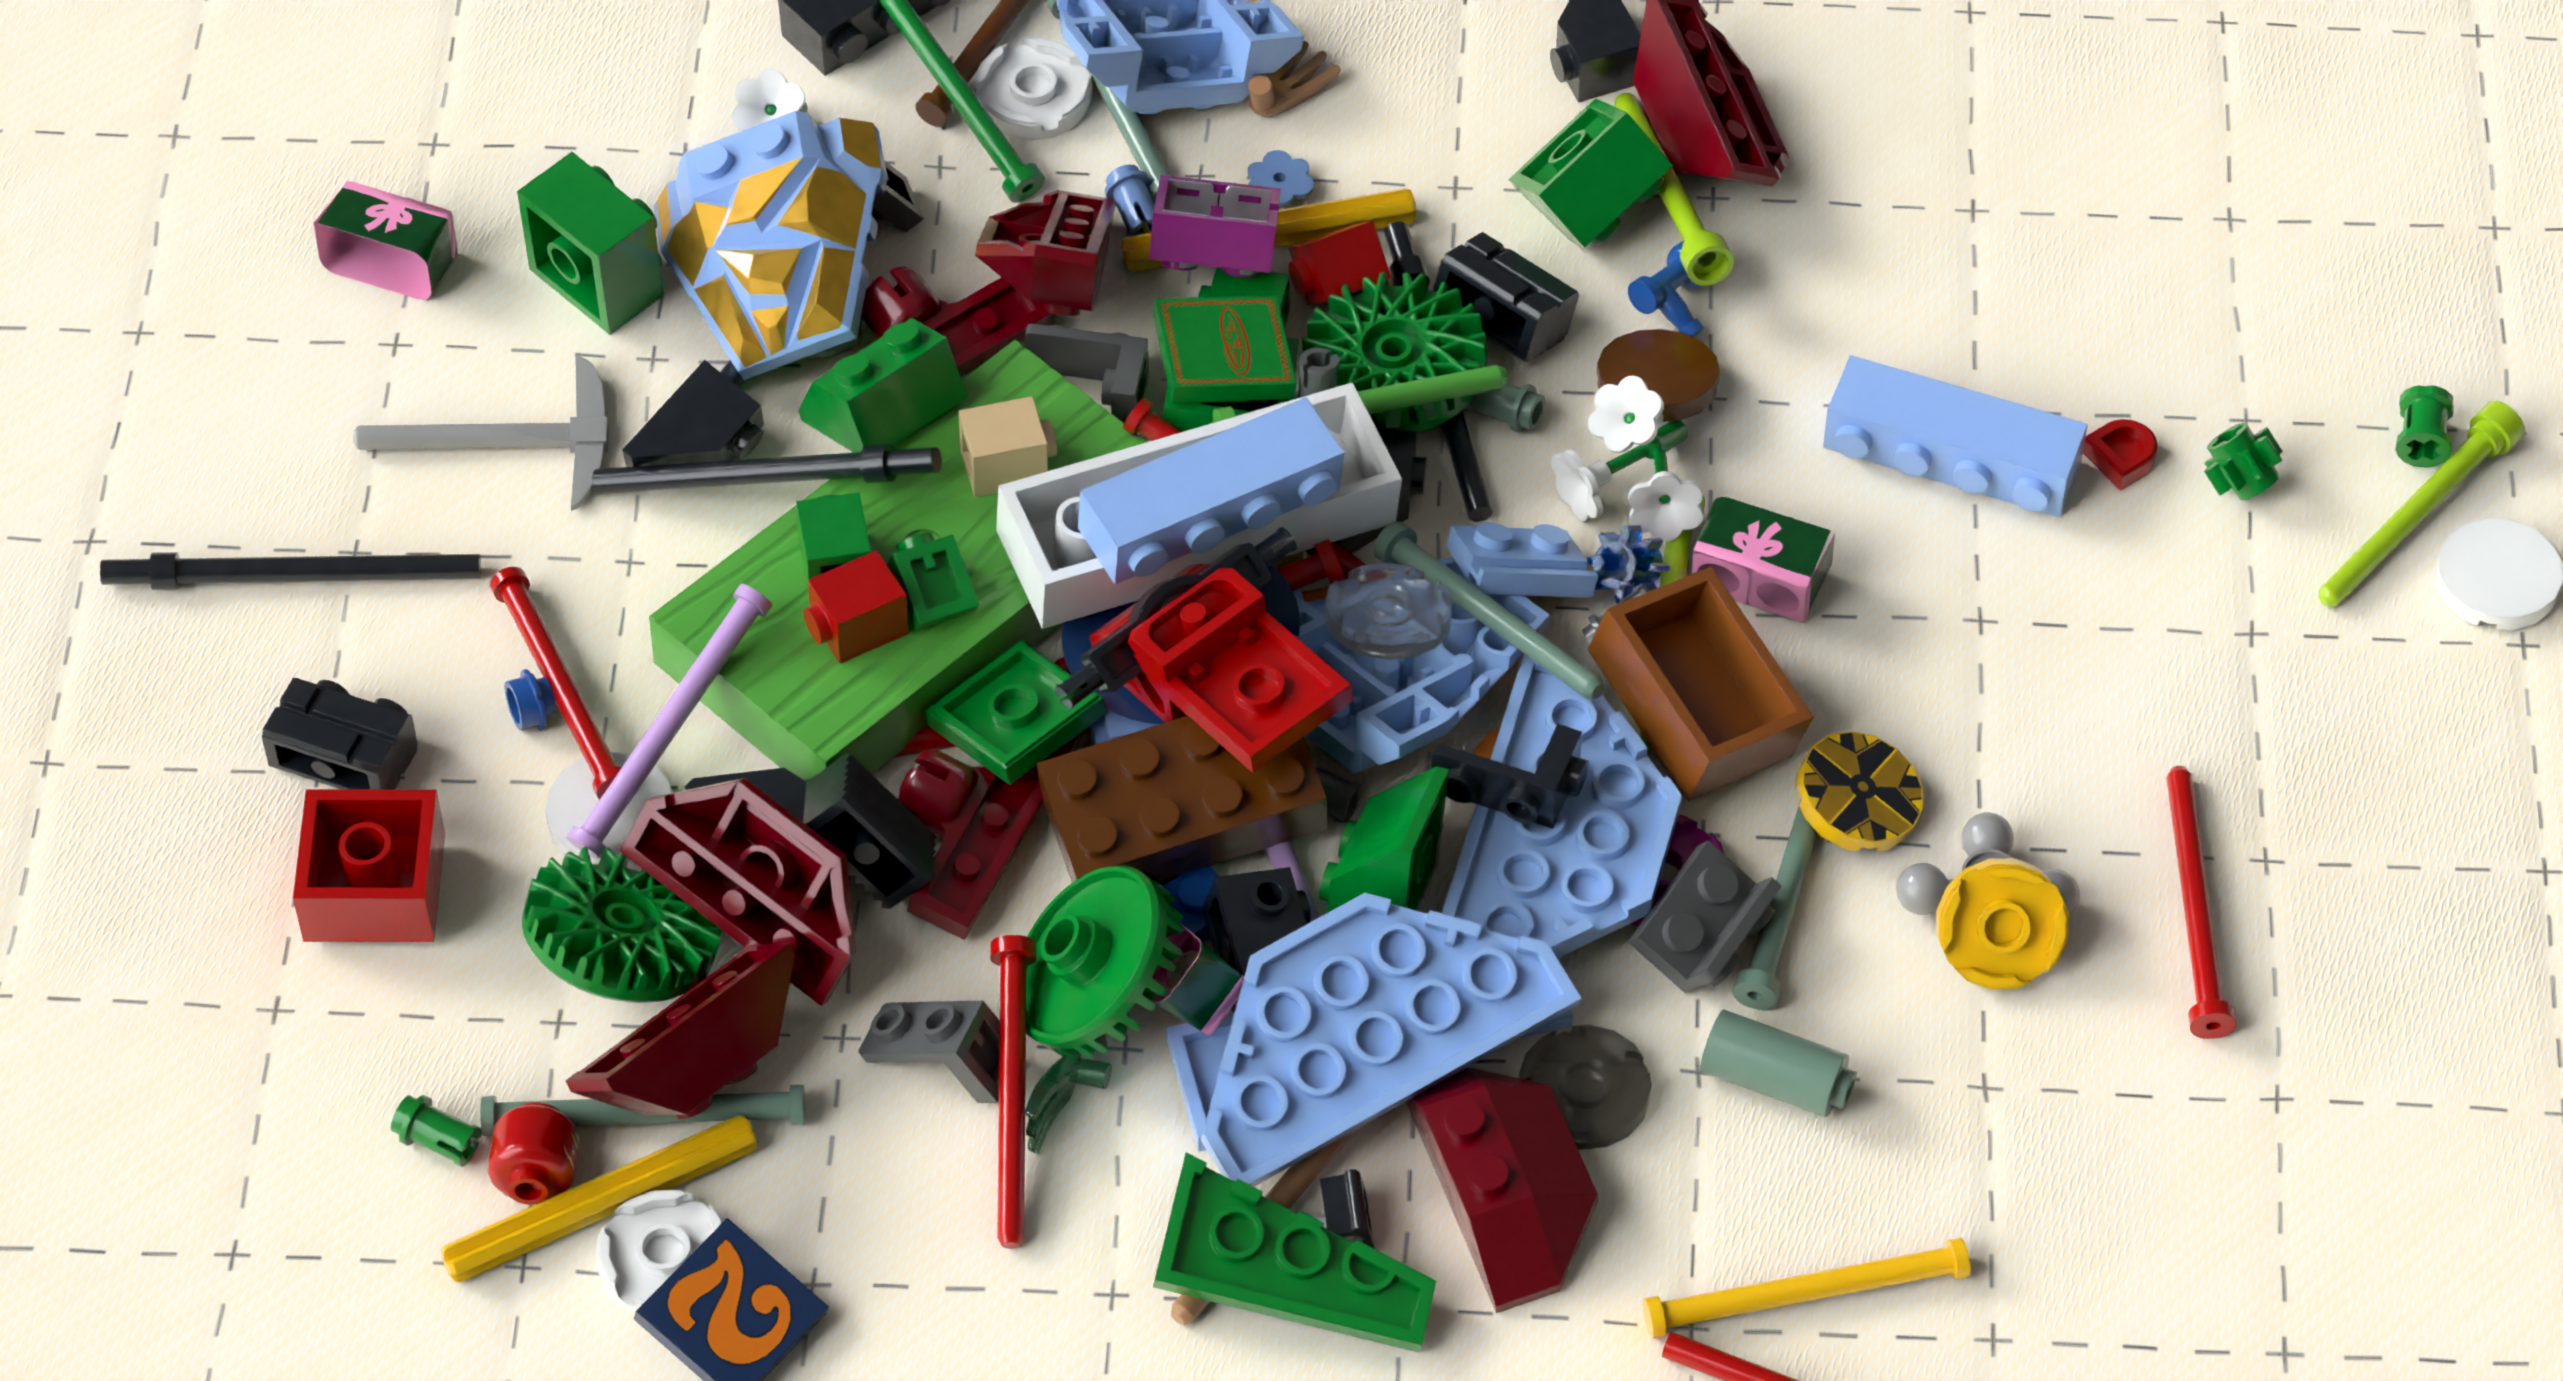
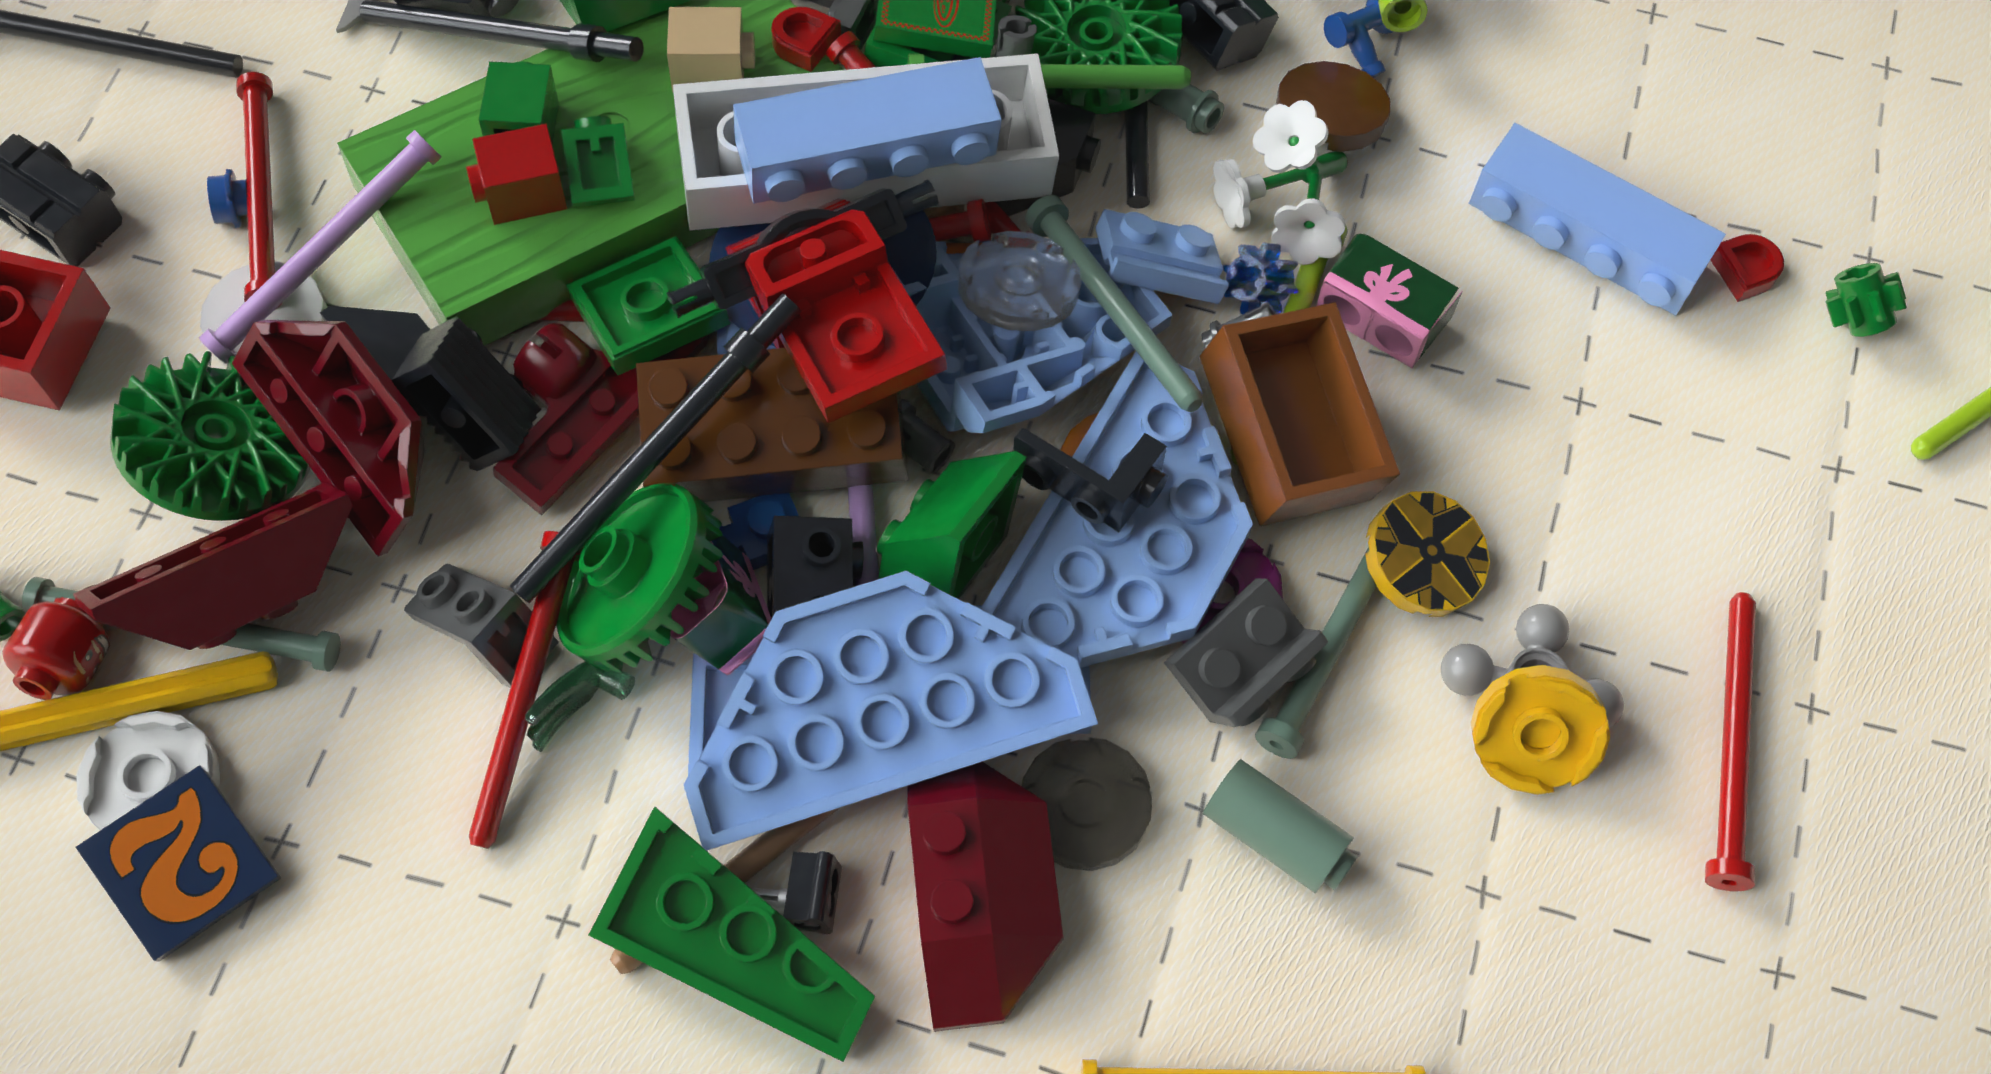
camera: 10 degrees right, 10 degrees up
(1093, 413) = (803, 35): none -> red tile
(1153, 725) = (745, 352): none -> black bar

